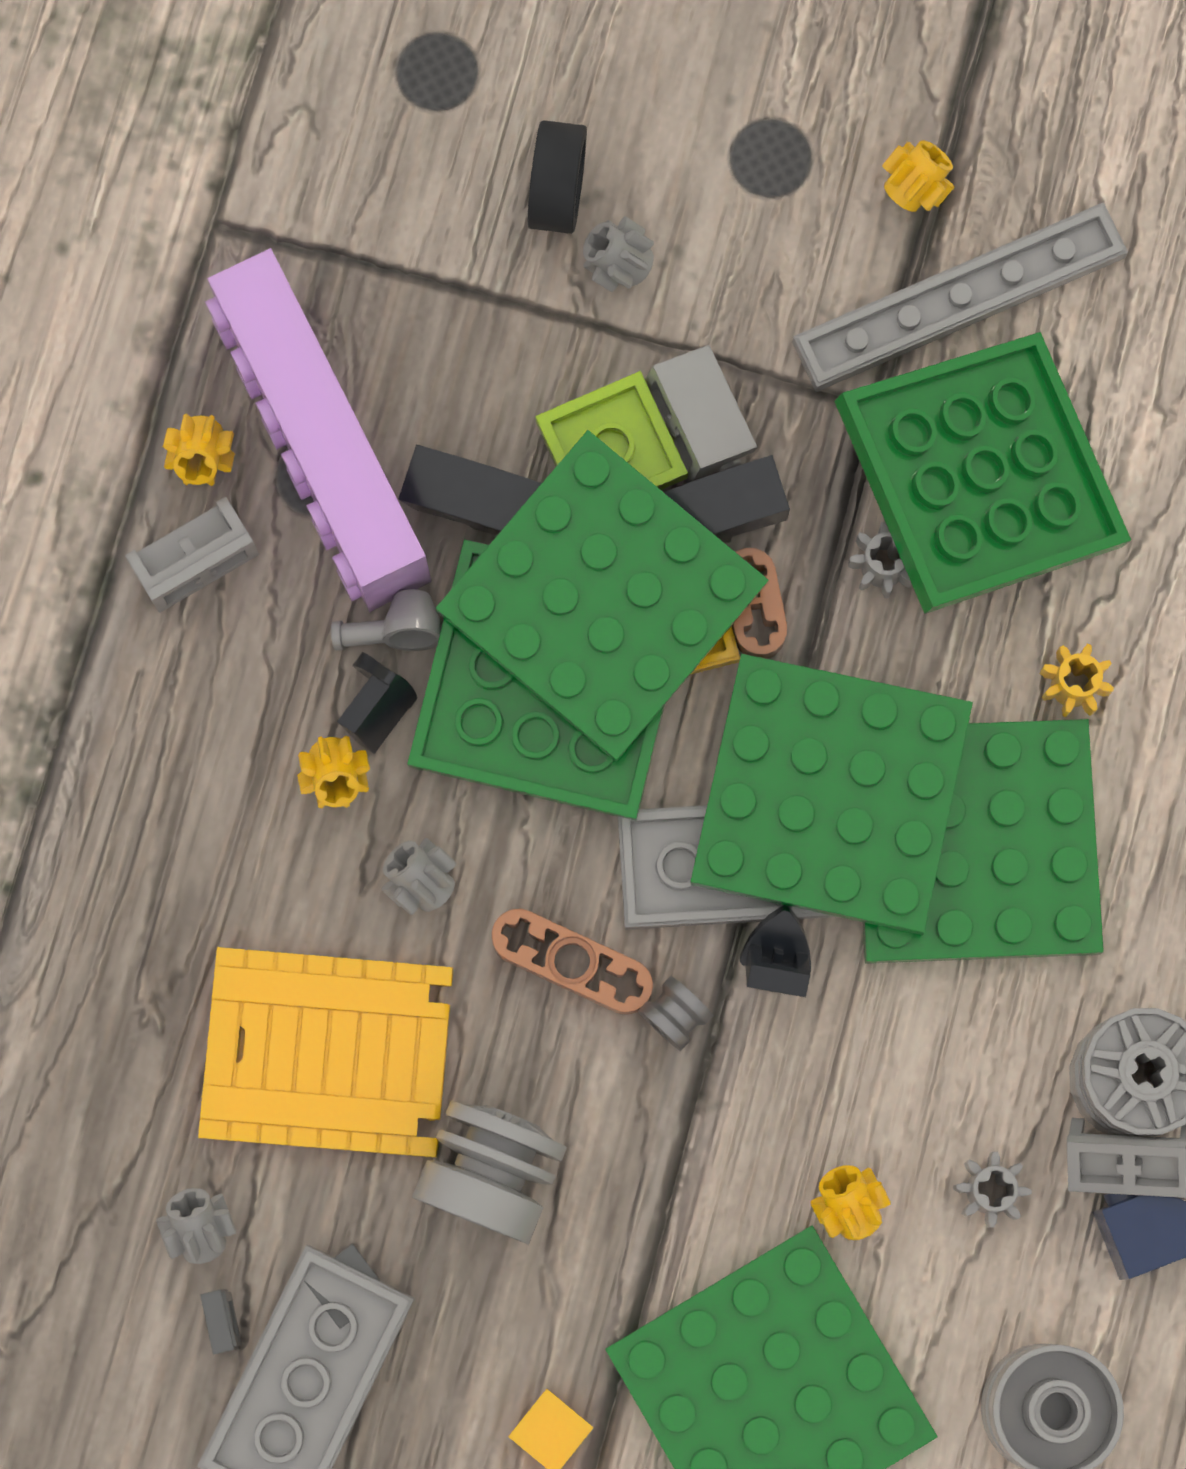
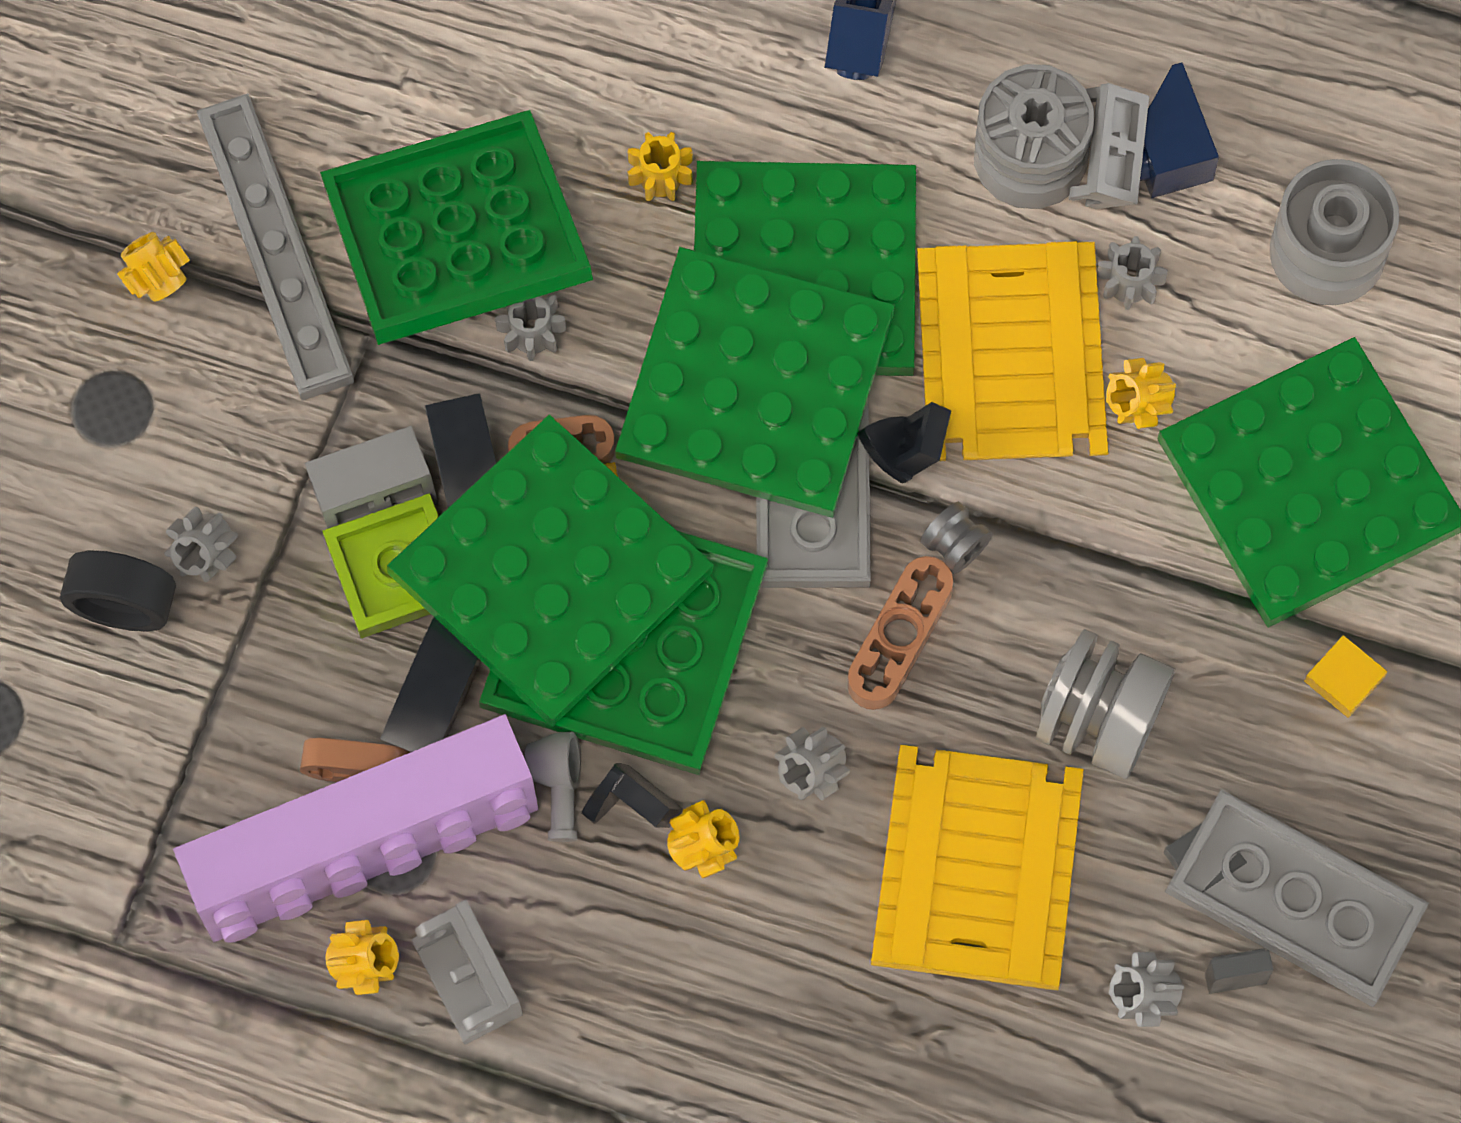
camera: 85 degrees left, 10 degrees down
(399, 425) = (341, 759): none -> nougat beam
(895, 1067) = (1014, 347): none -> yellow door

